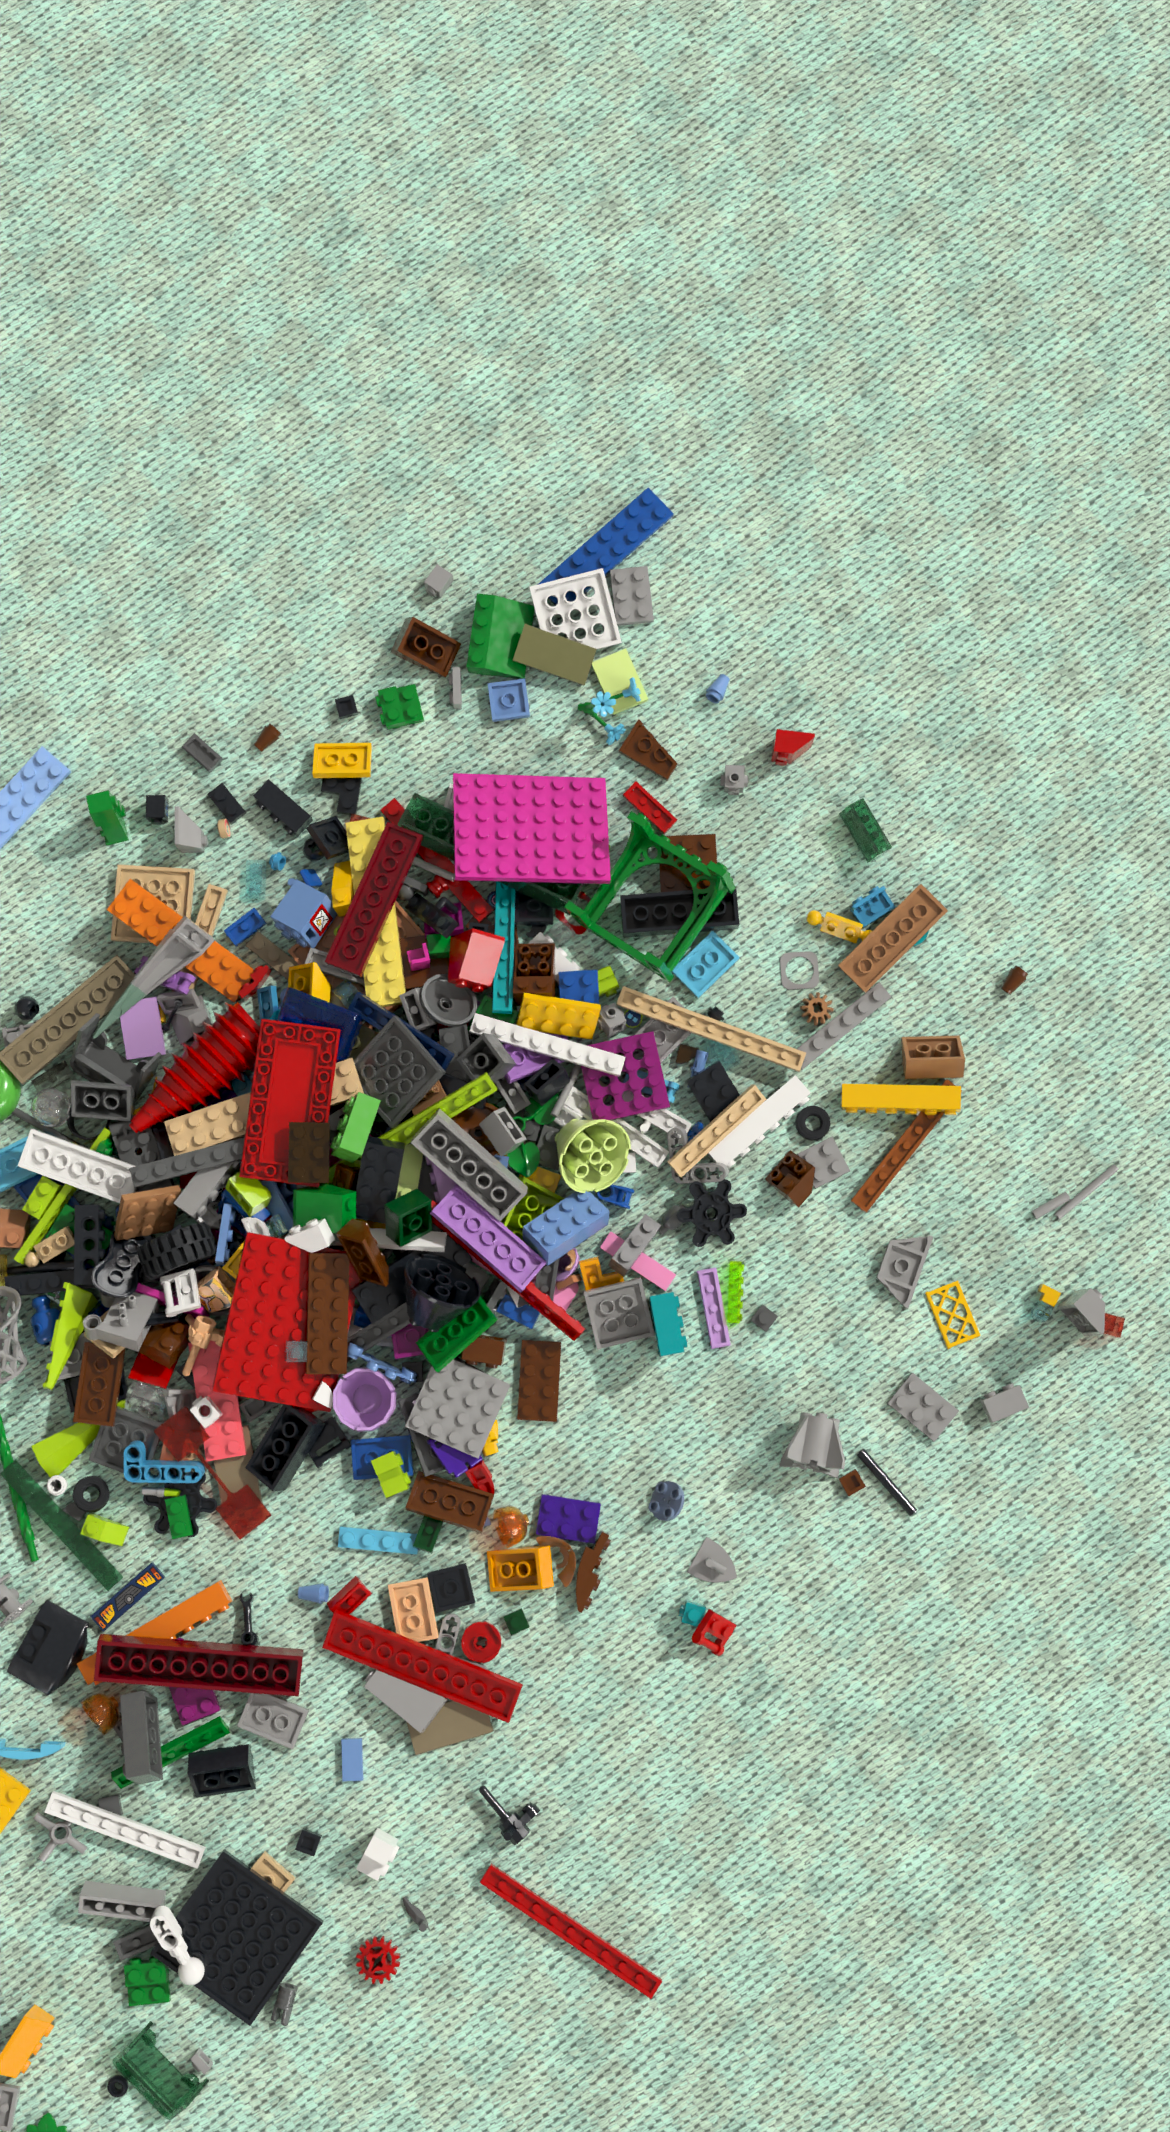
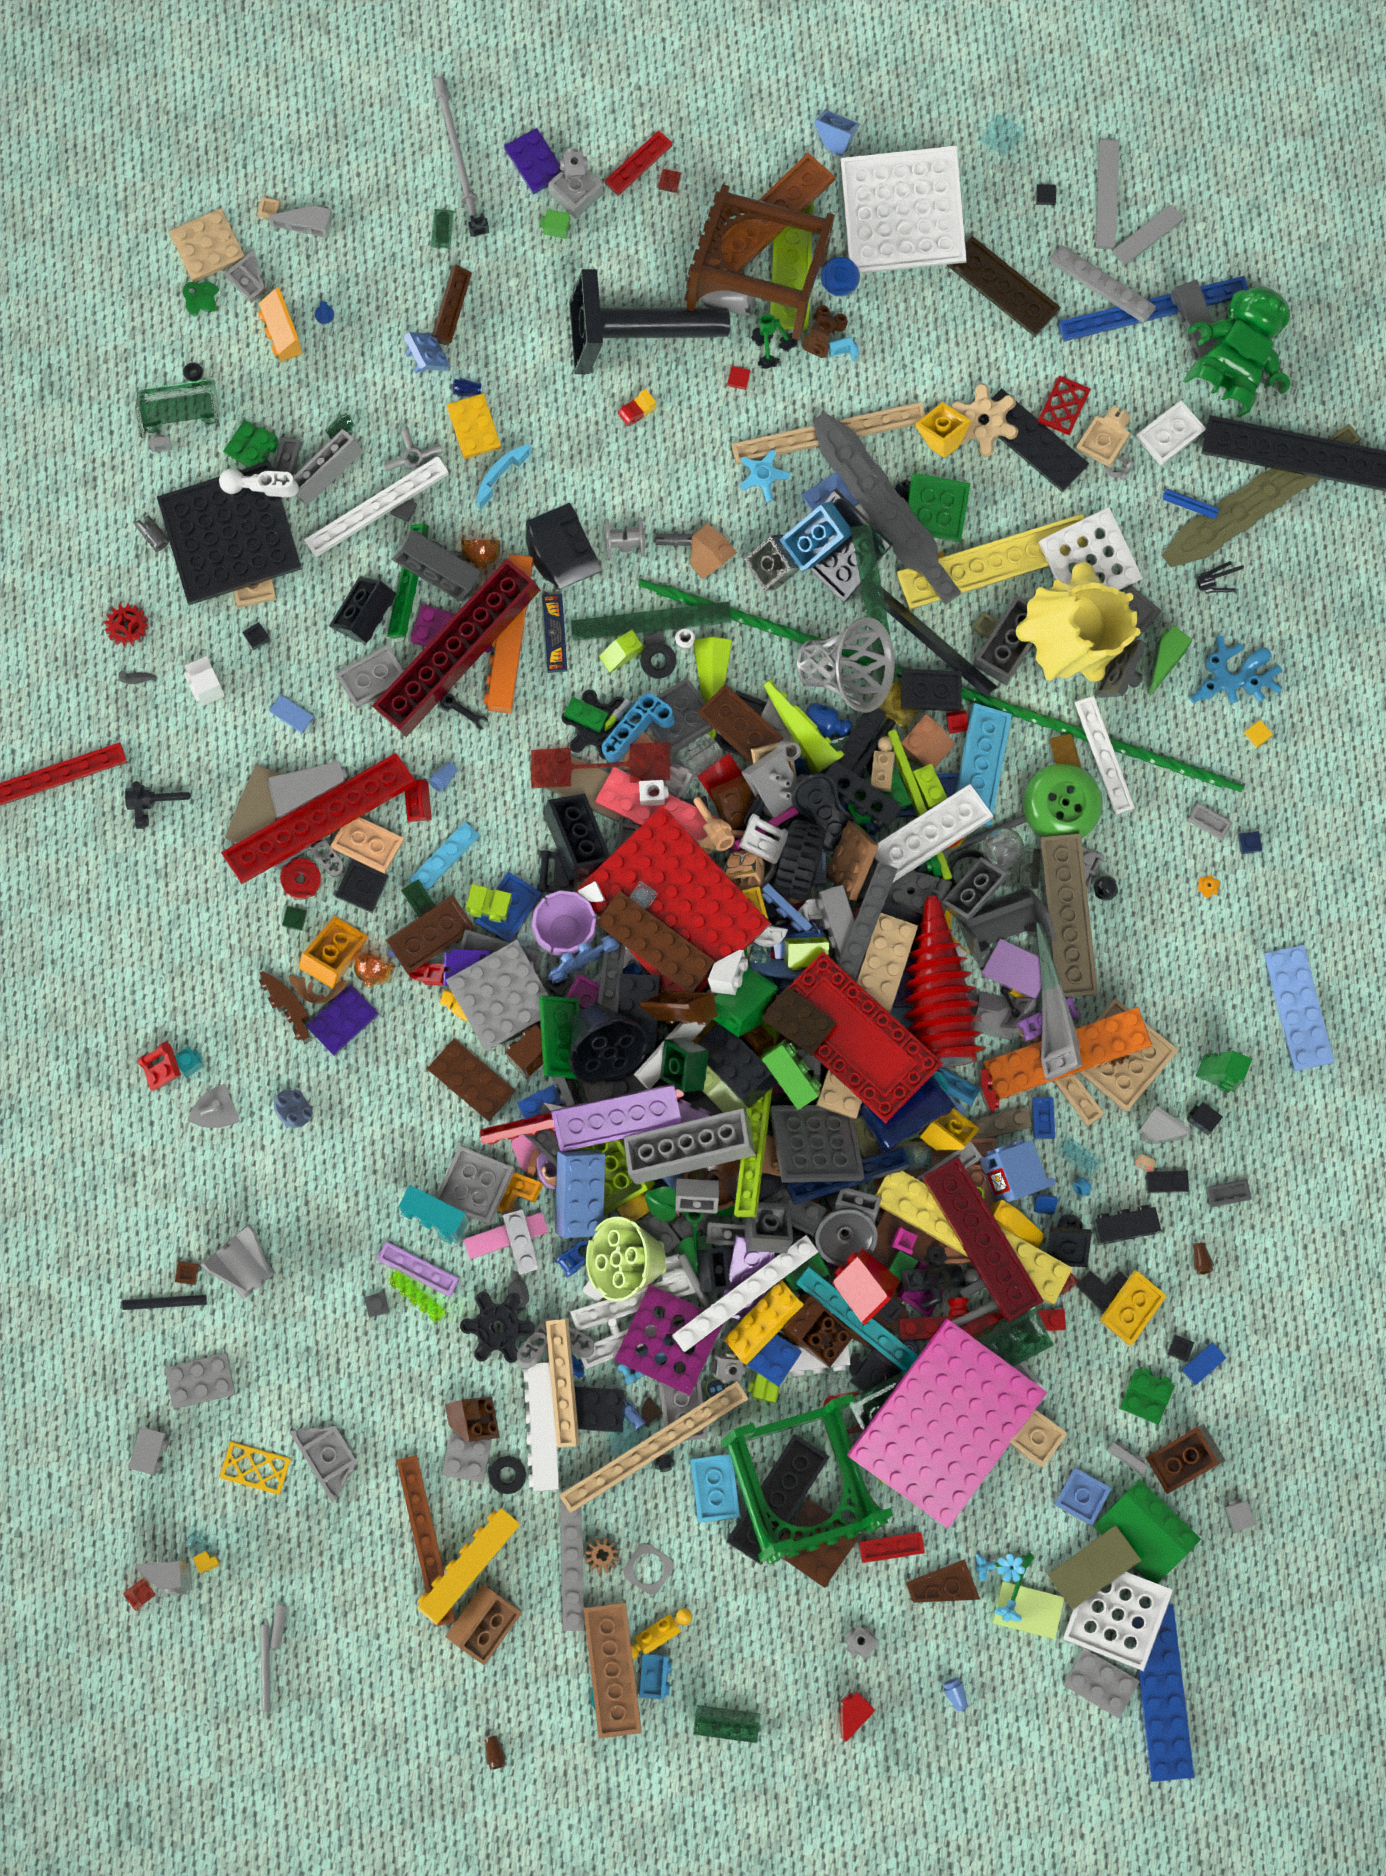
camera: 120 degrees right, 5 degrees down
(74, 1919) = (341, 422): none -> clear green cone
(345, 683) = (1203, 1364): none -> blue tile
(410, 933) = (941, 1255): none -> black plate
(491, 756) = (1038, 1439): none -> tan panel

